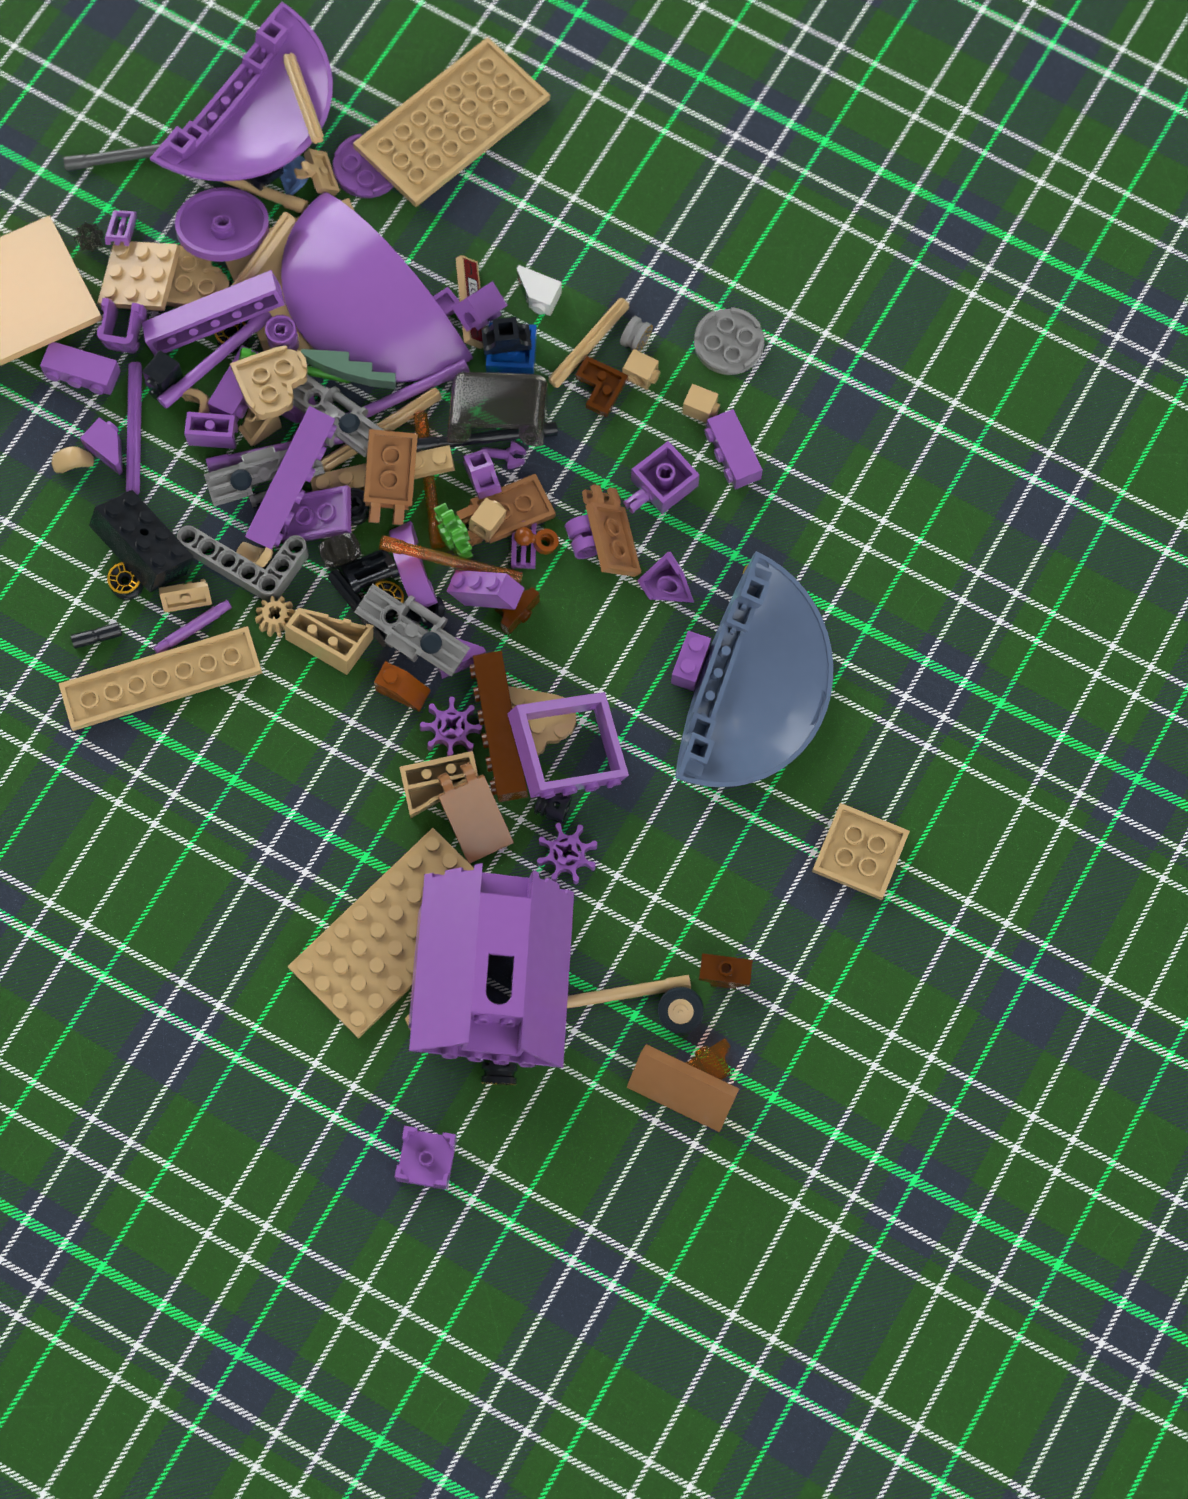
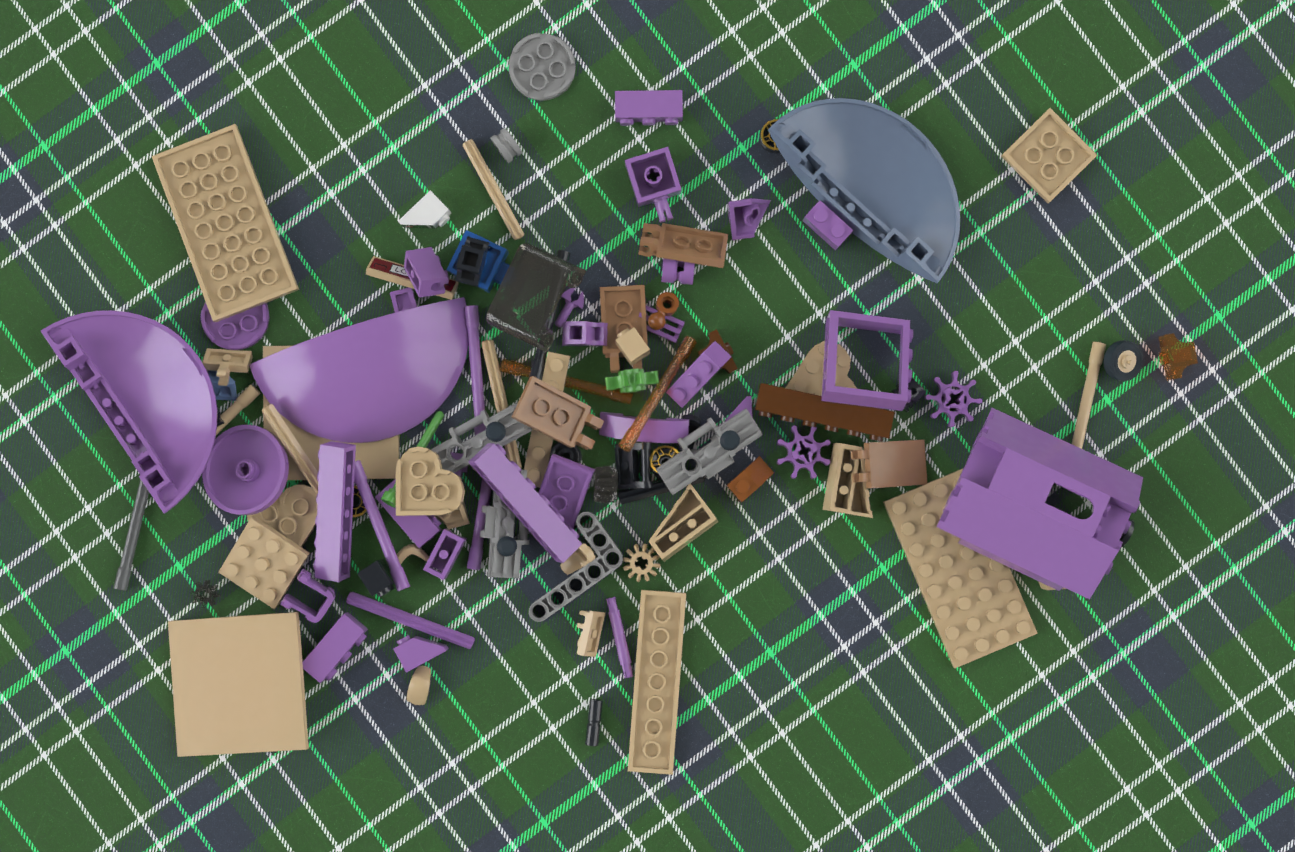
camera: 65 degrees left, 15 degrees up
(120, 590) = (548, 686): black wheel -> none
(126, 238) = (221, 568): medium lavender tile -> none
(141, 540) = (526, 654): black brick -> none
(281, 332) = (381, 458): medium lavender wheel -> none
(303, 98) = (150, 349): tan axle -> none
(339, 365) = (432, 417): sand green slope -> none
(426, 1158) = (1160, 616): medium lavender panel -> none
(606, 383) = (539, 189): reddish brown plate -> none
(641, 369) = (540, 154): tan brick -> none
(682, 1088) = (1190, 385): medium nougat slope -> none
(701, 403) = (594, 116): tan brick -> none
(725, 971) = (1108, 310): reddish brown brick -> none

